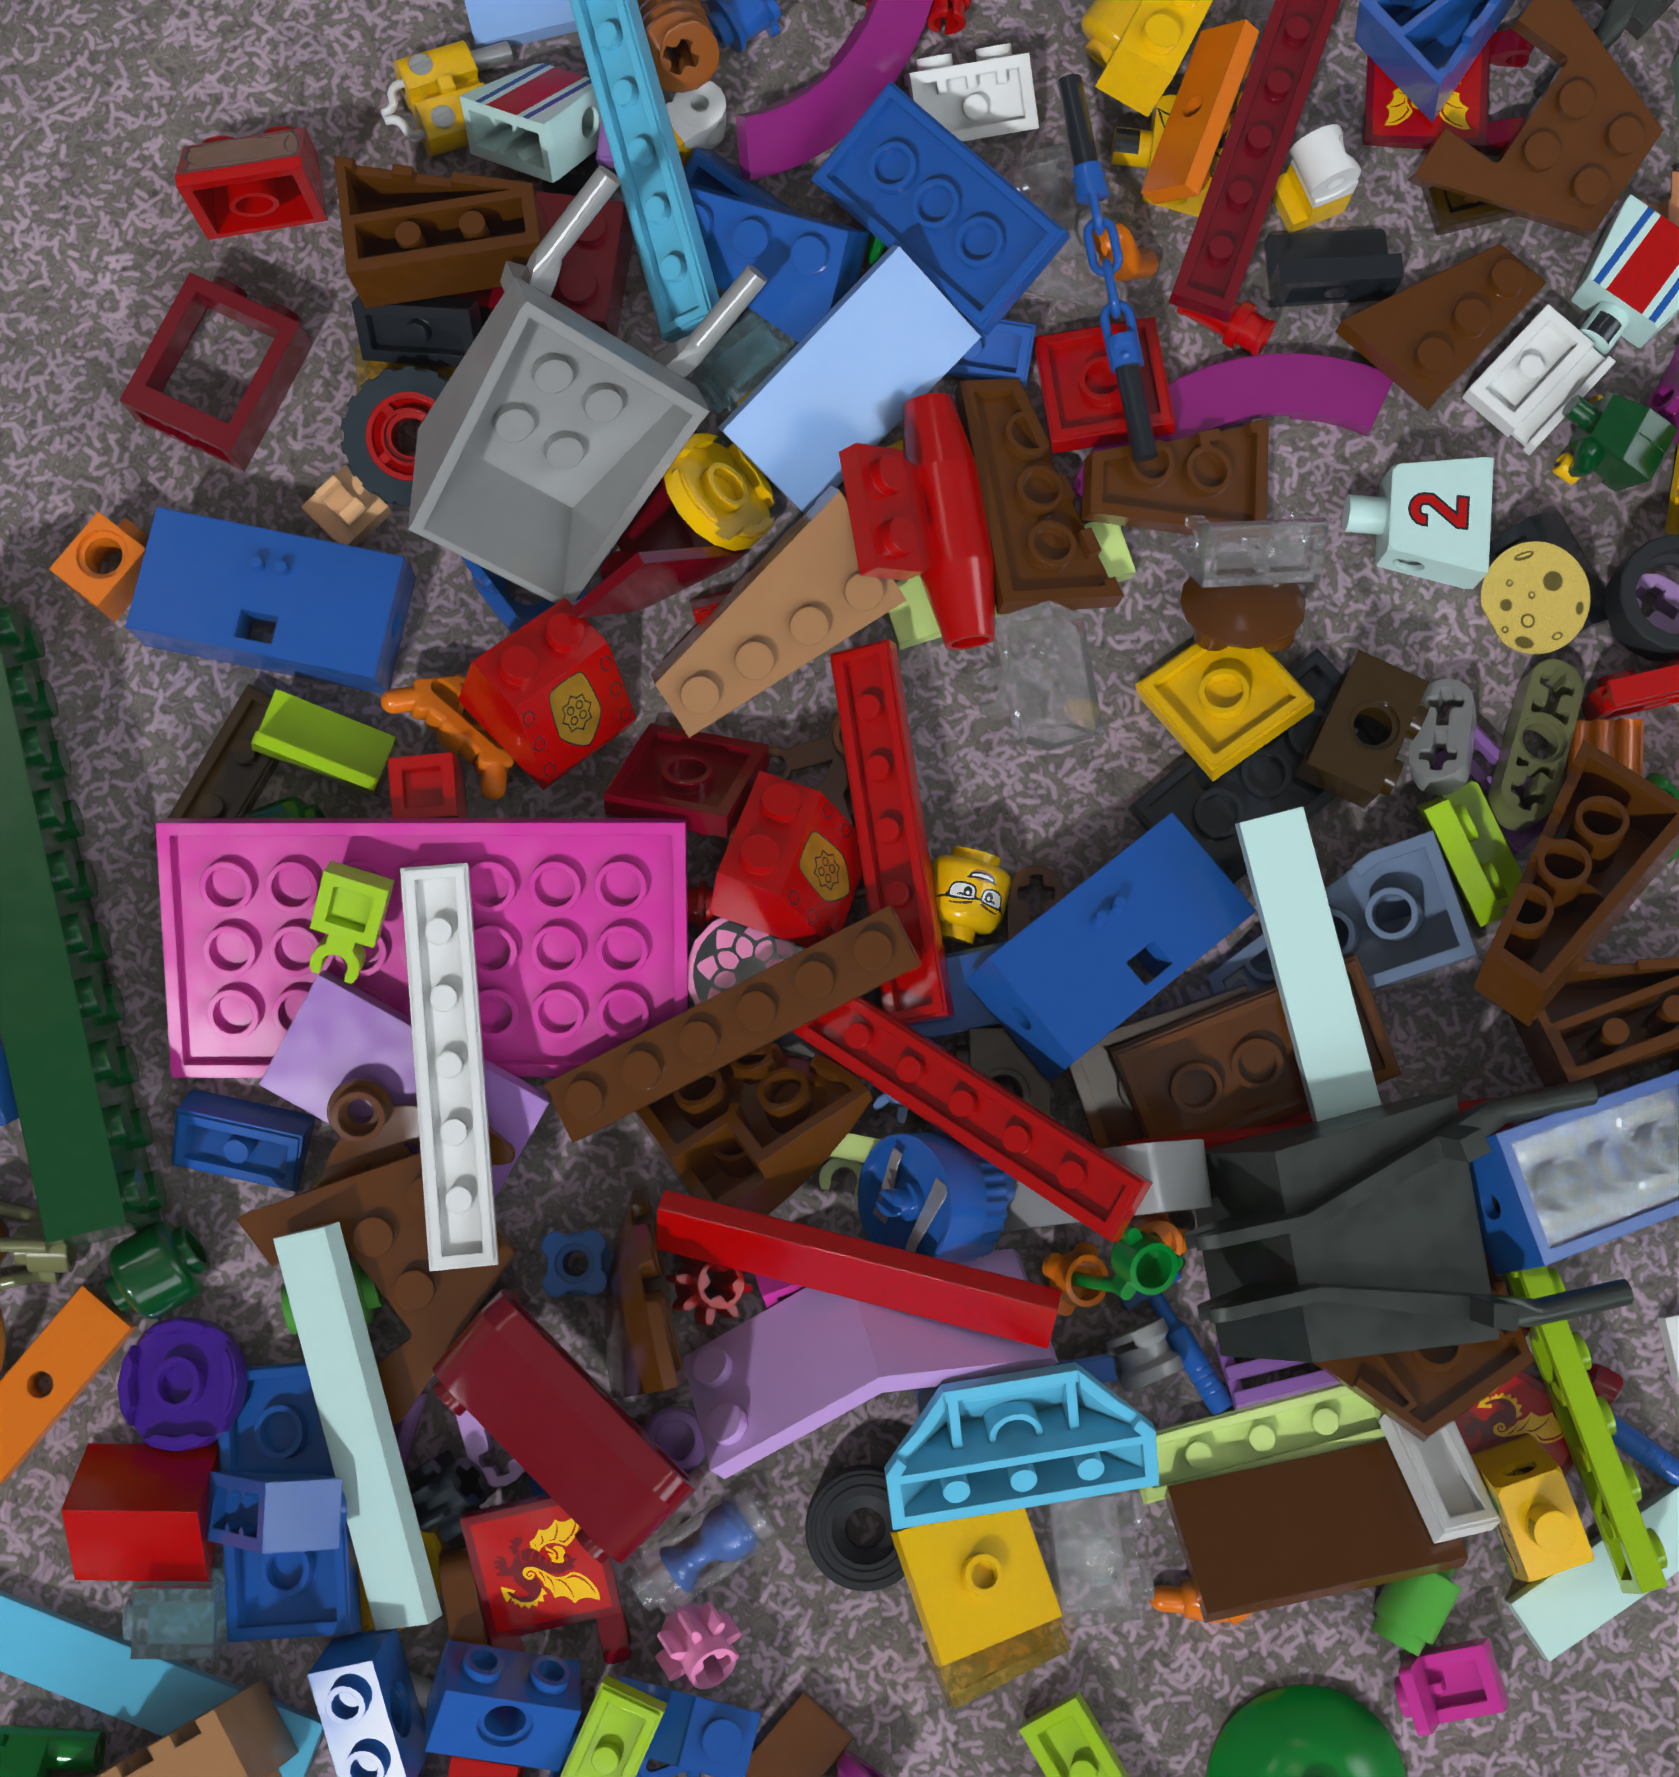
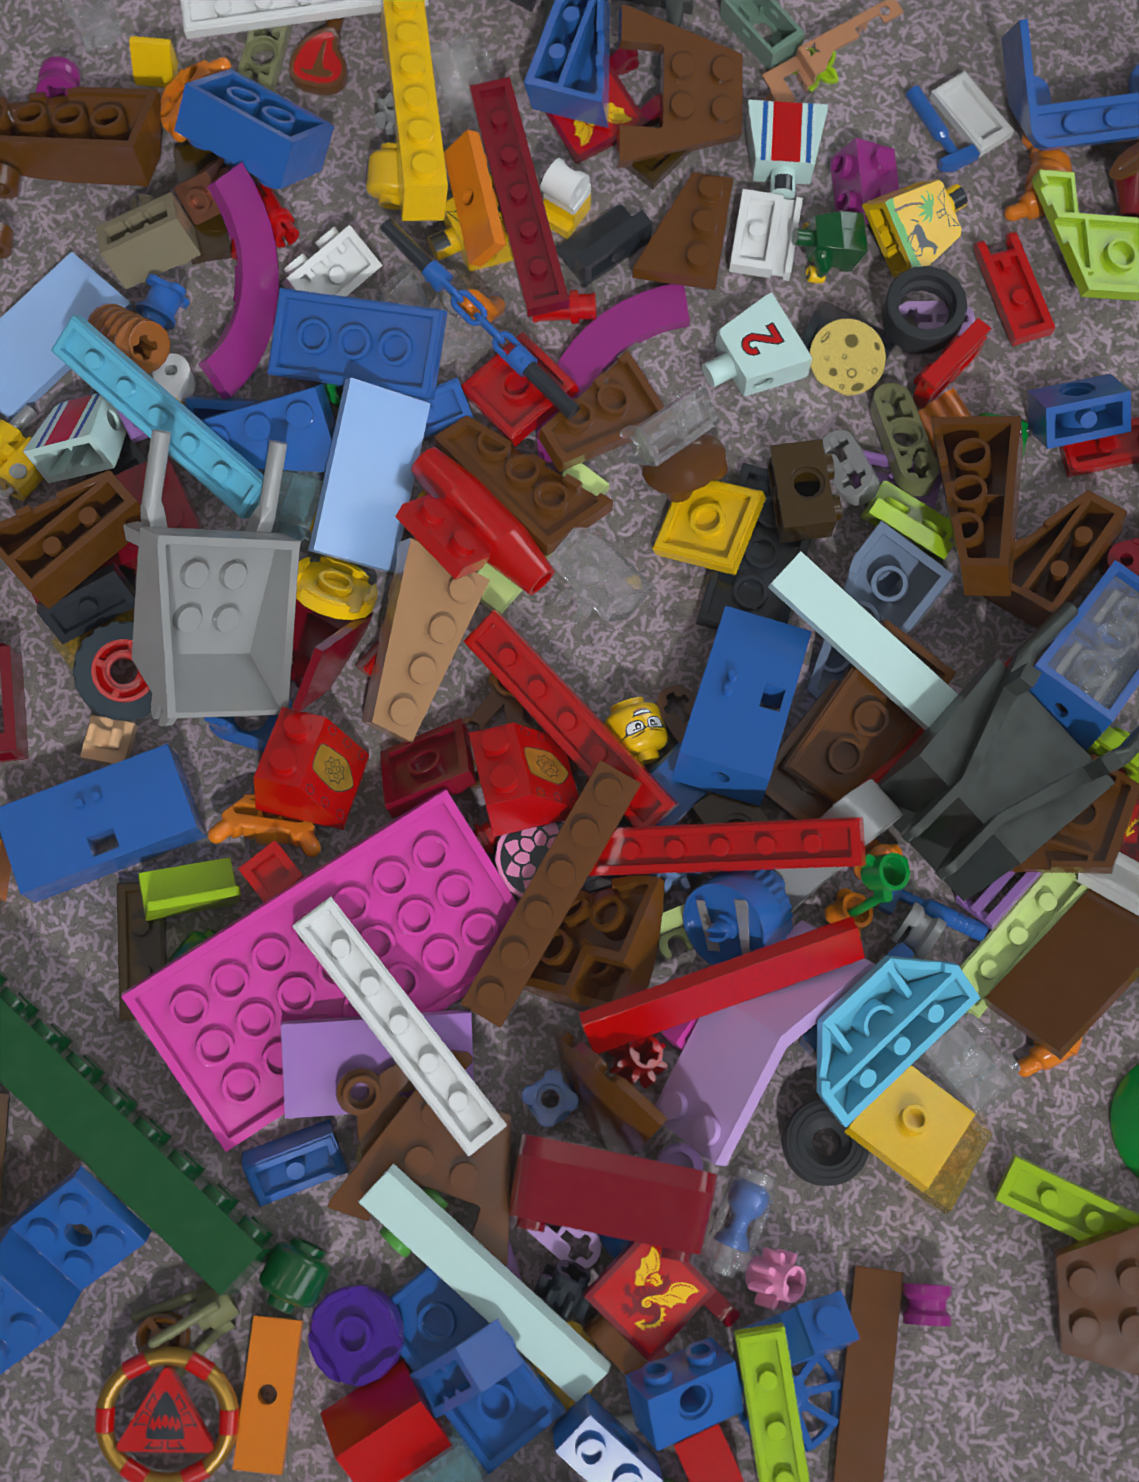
camera: 30 degrees left, 5 degrees down
(351, 913) = (278, 973): lime plate -> none

